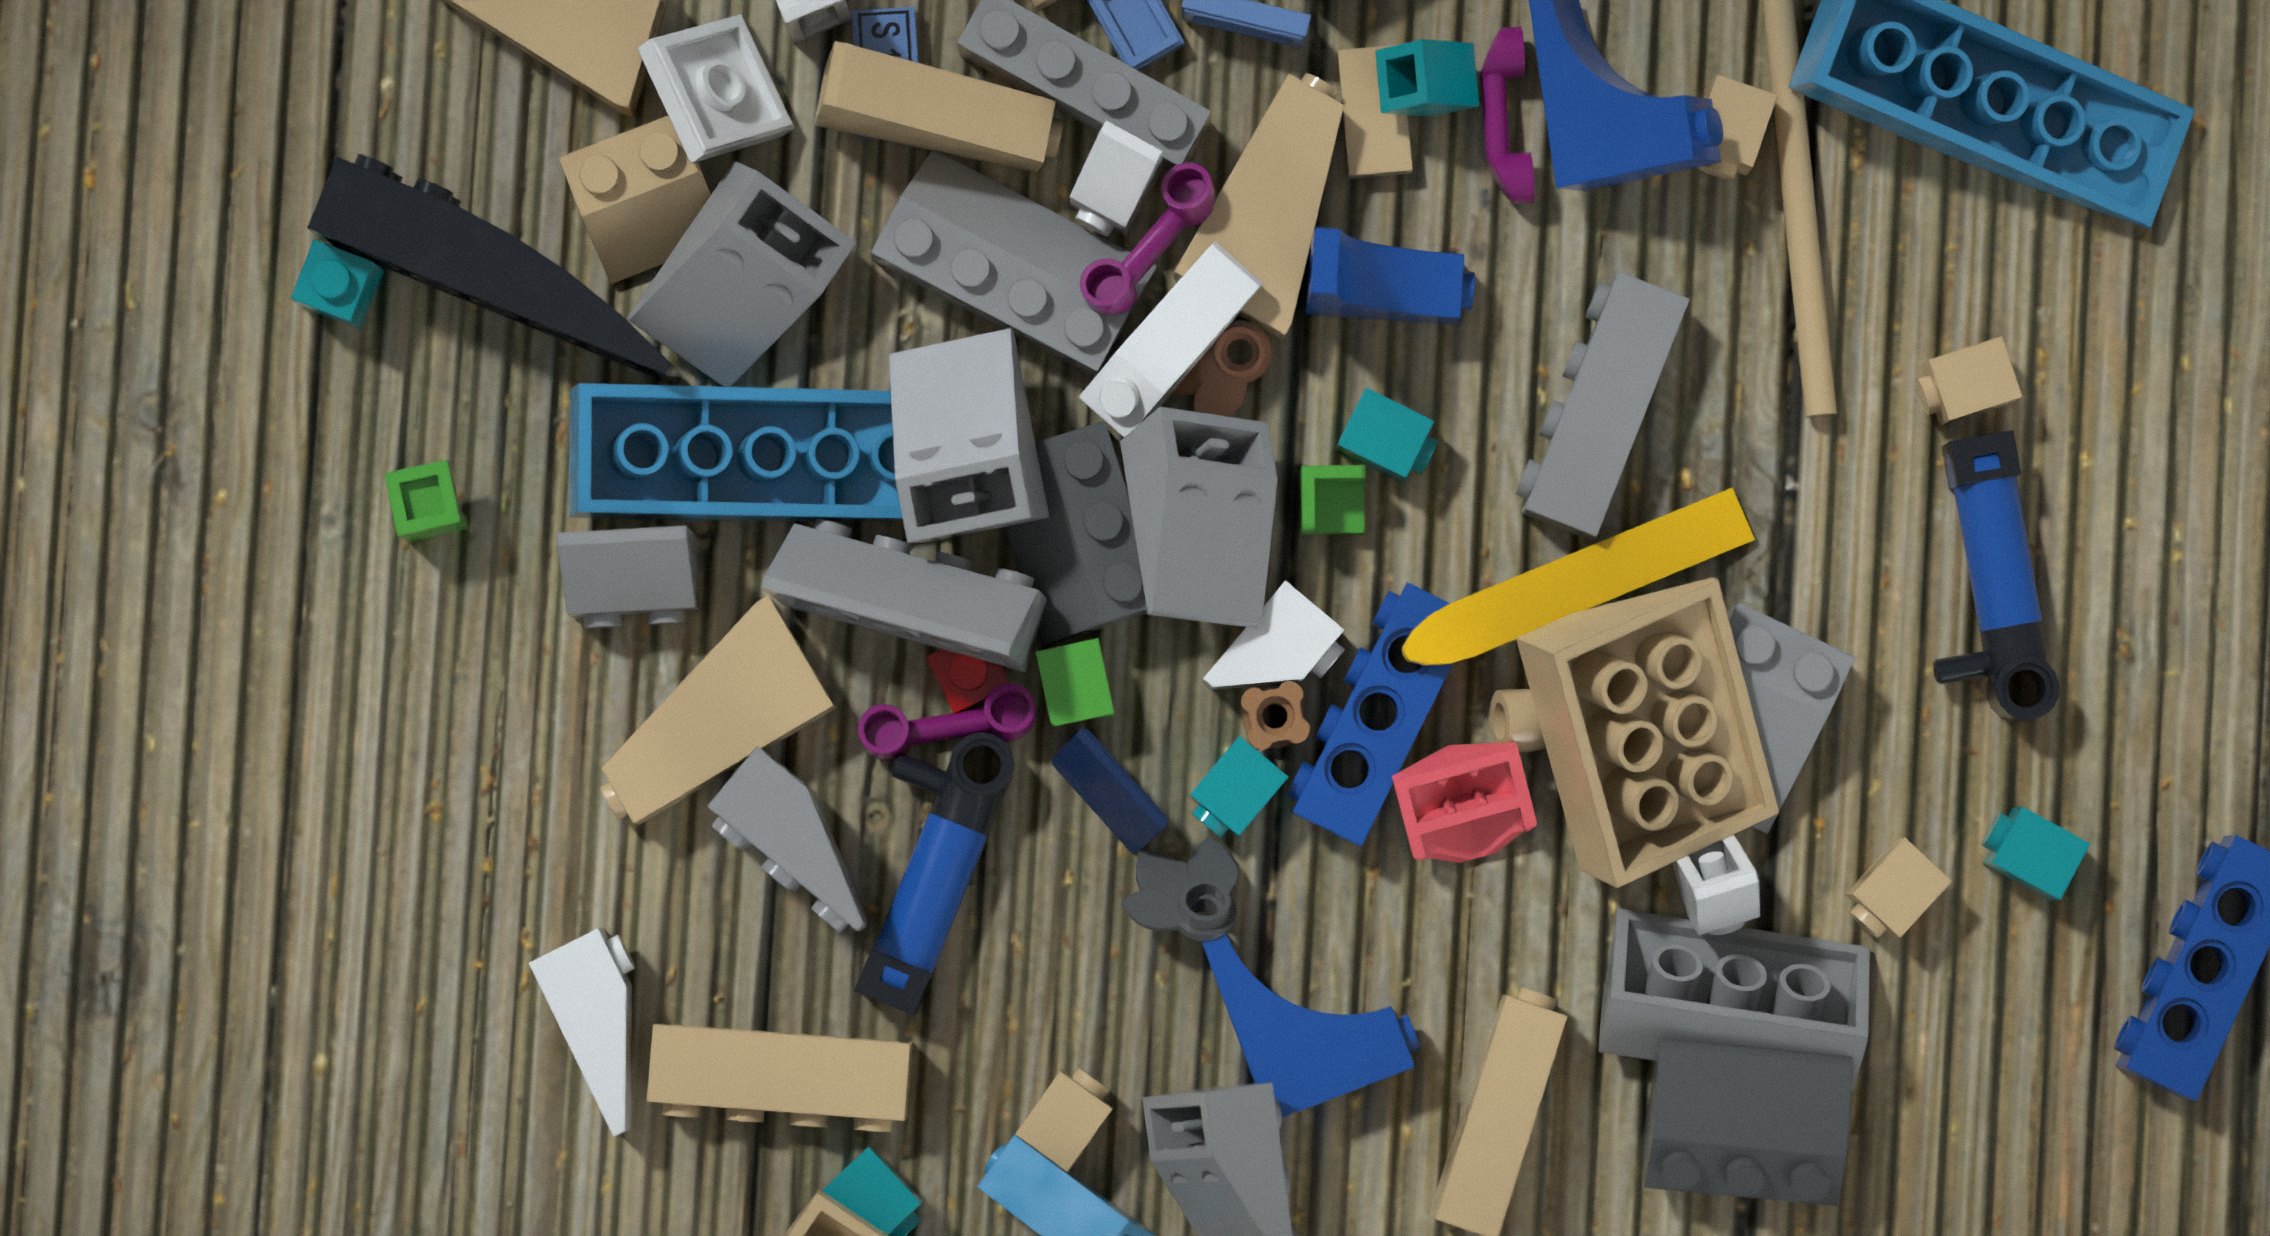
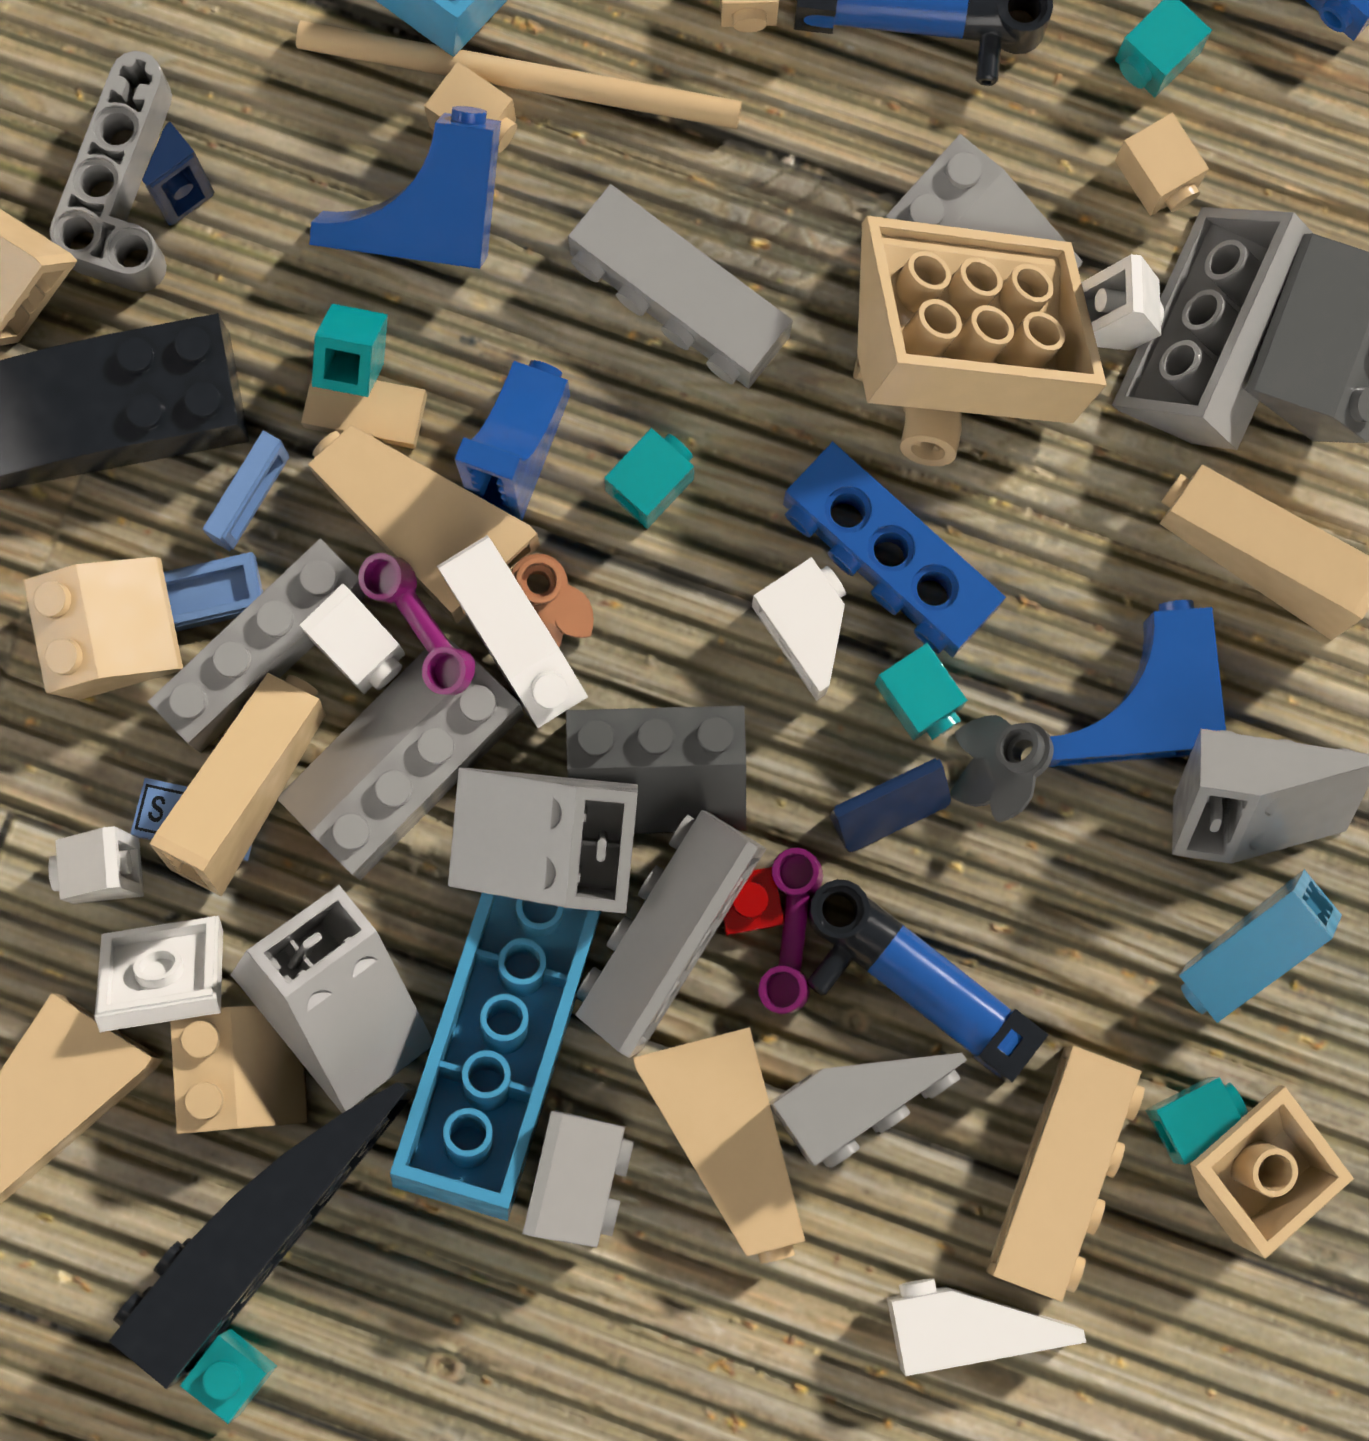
camera: 80 degrees left, 5 degrees down
(425, 501) = (453, 1350): bright green panel -> none
(1066, 1117) = (1172, 927): tan brick -> none
(1075, 682) = (789, 806): bright green panel -> none
(1202, 514) = (674, 647): light grey slope -> none
(1286, 696) = (878, 629): medium nougat brick -> none
(1332, 500) = (691, 541): bright green panel -> none
(1464, 801) = (988, 498): coral slope -> none
(1510, 170) = (455, 304): magenta bar -> none
(1580, 581) = (826, 351): yellow piece -> none

